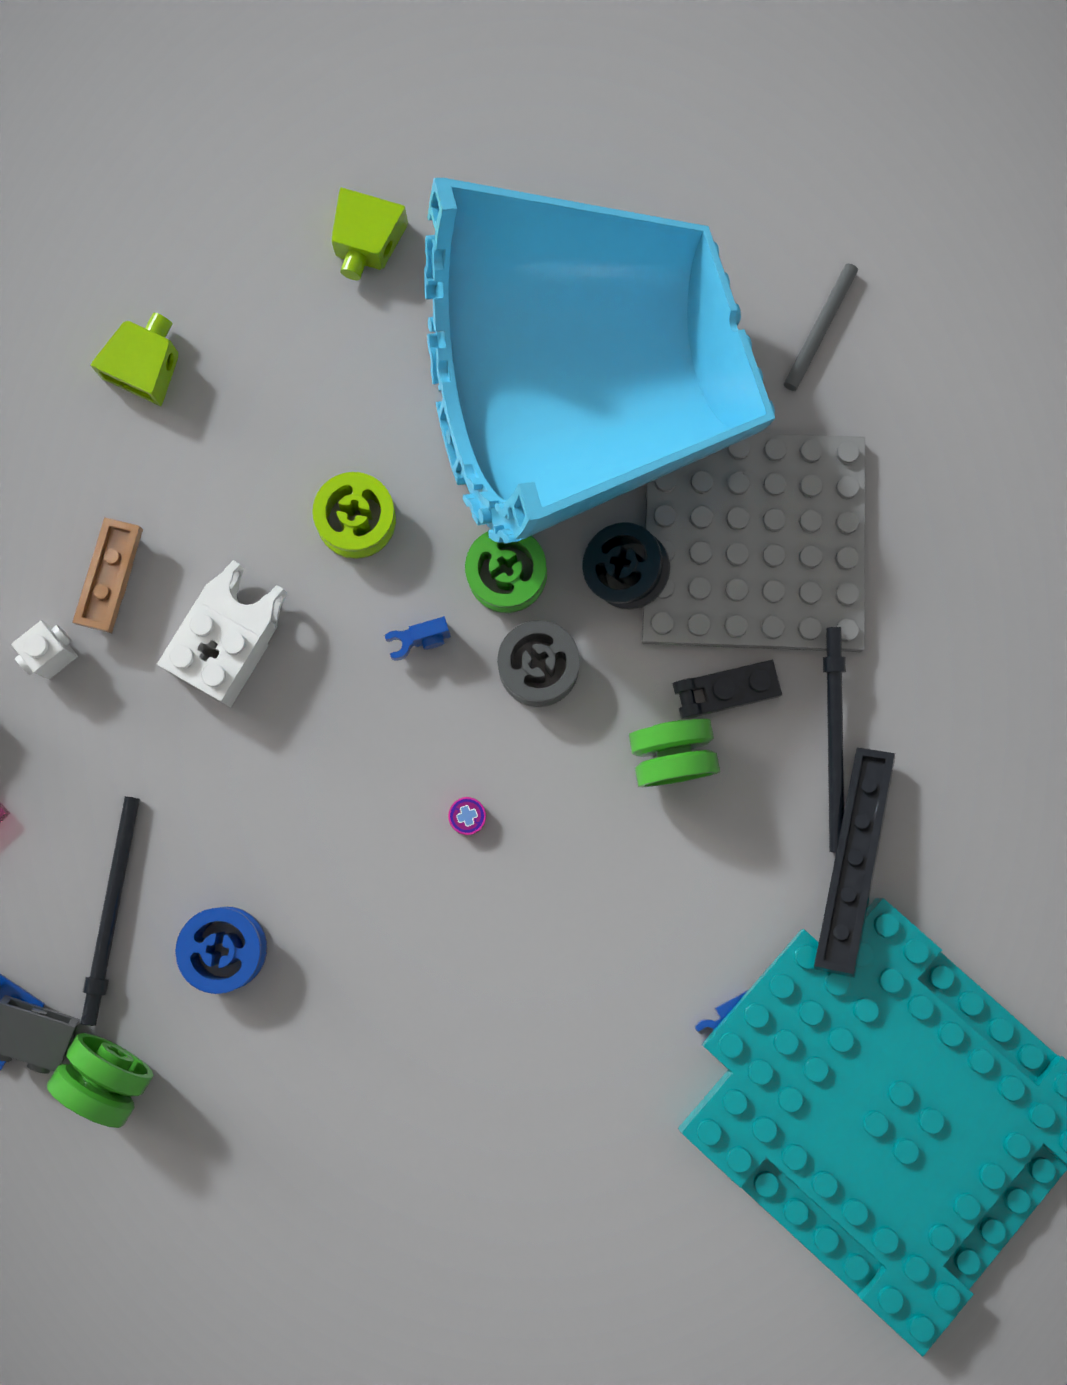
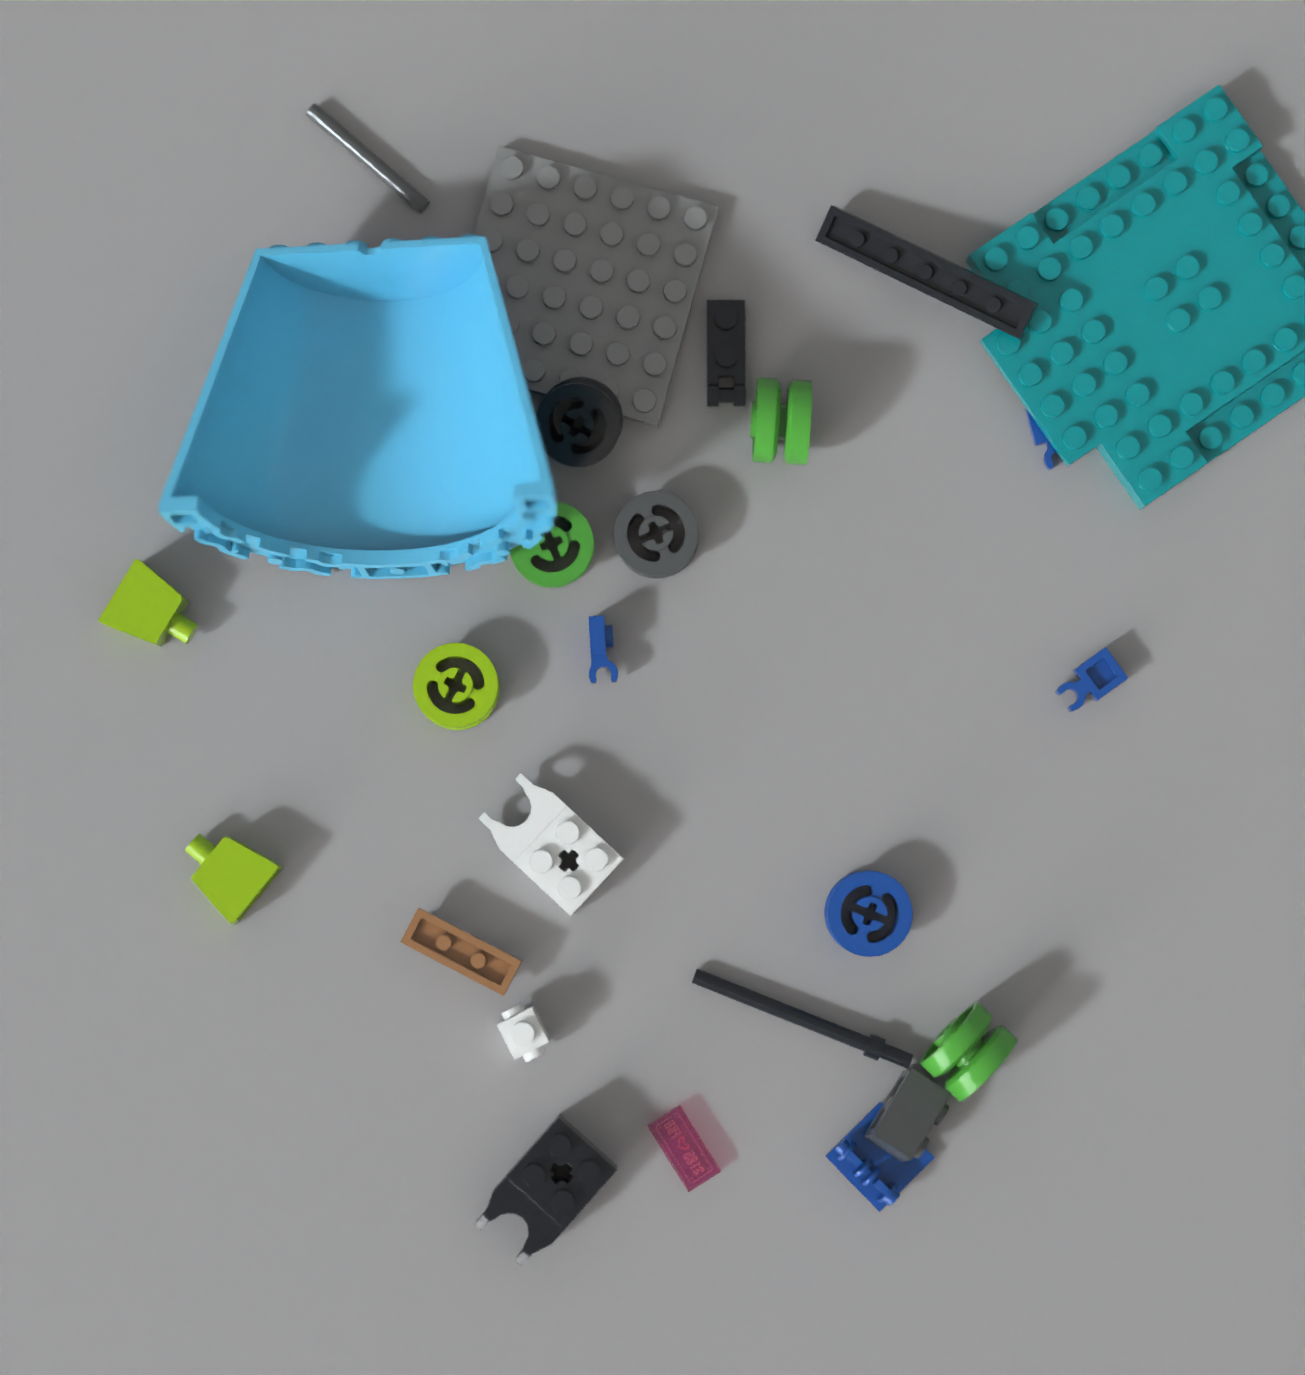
camera: 80 degrees left, 5 degrees up
(467, 816) = (792, 642): tile -> none
(502, 1122) = (1096, 677): none -> blue plate
(834, 666) = (729, 241): black bar -> none

